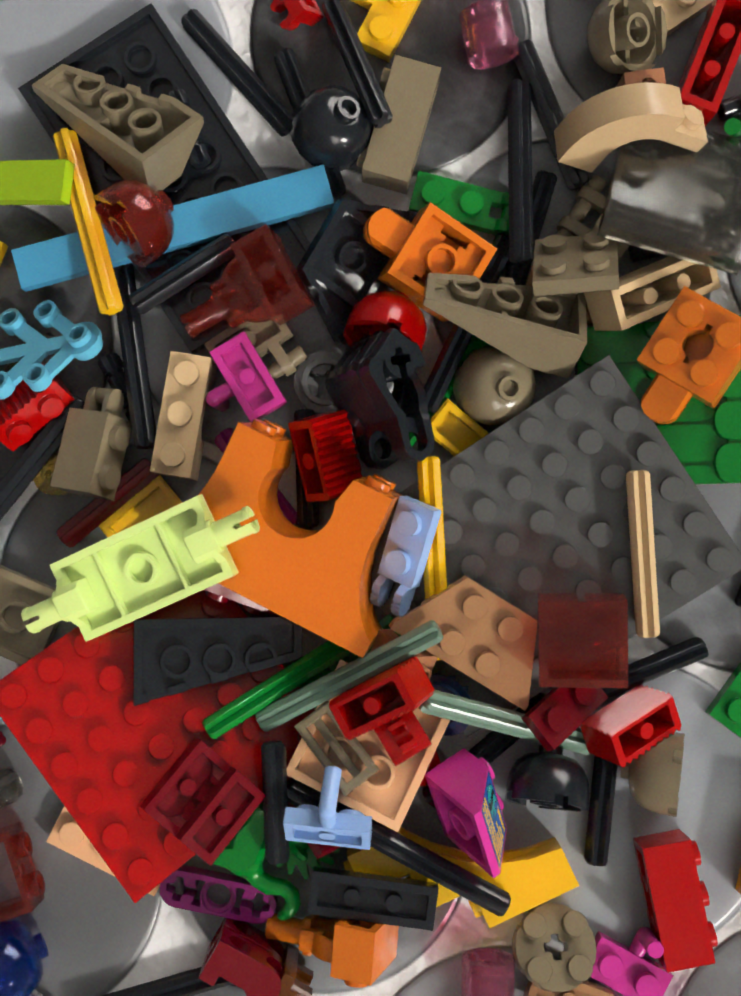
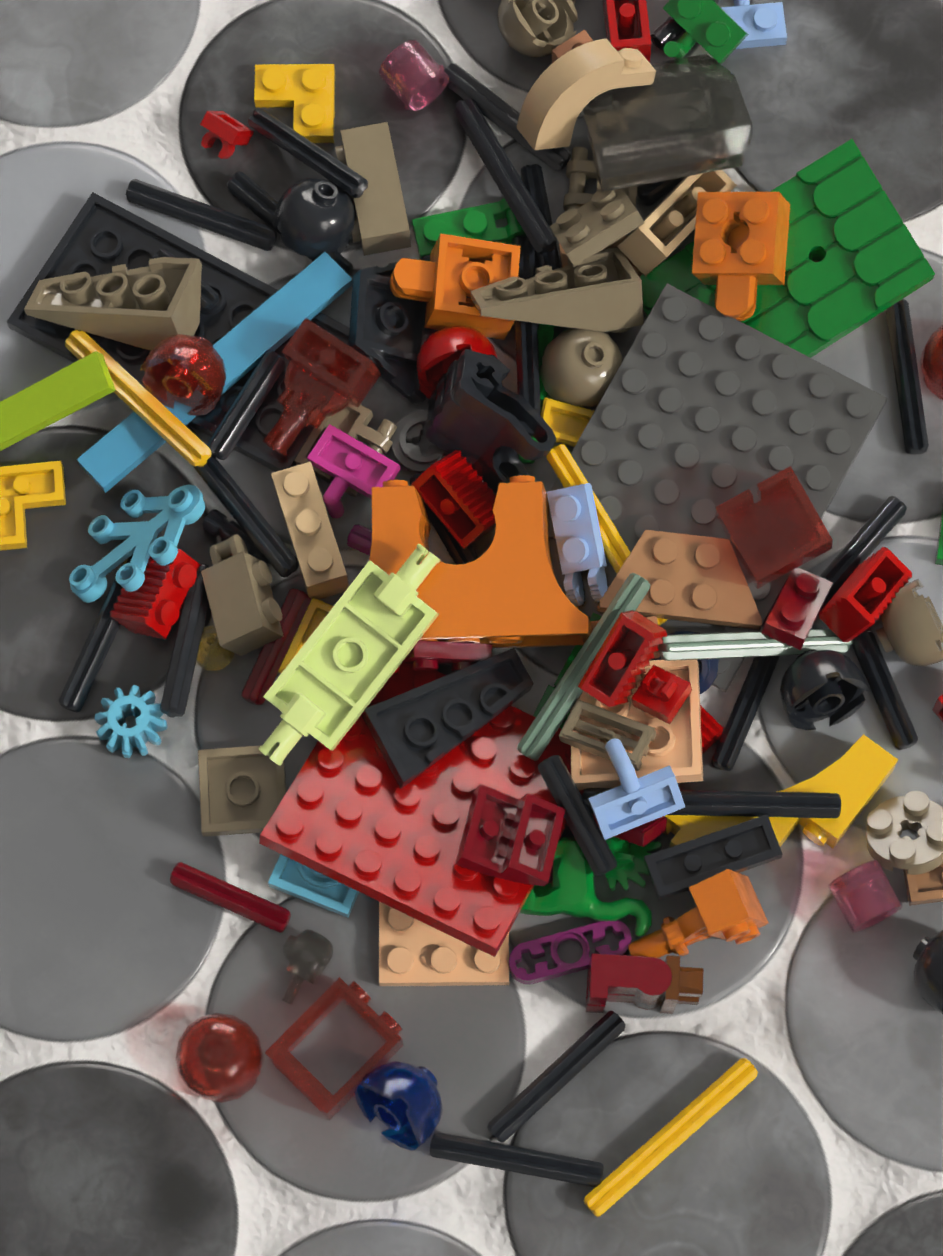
camera: 20 degrees left, 15 degrees down
(273, 689) = (521, 718): green axle -> none
(470, 808) = (756, 736): dark pink slope -> none
(642, 553) = (788, 432): tan axle -> none

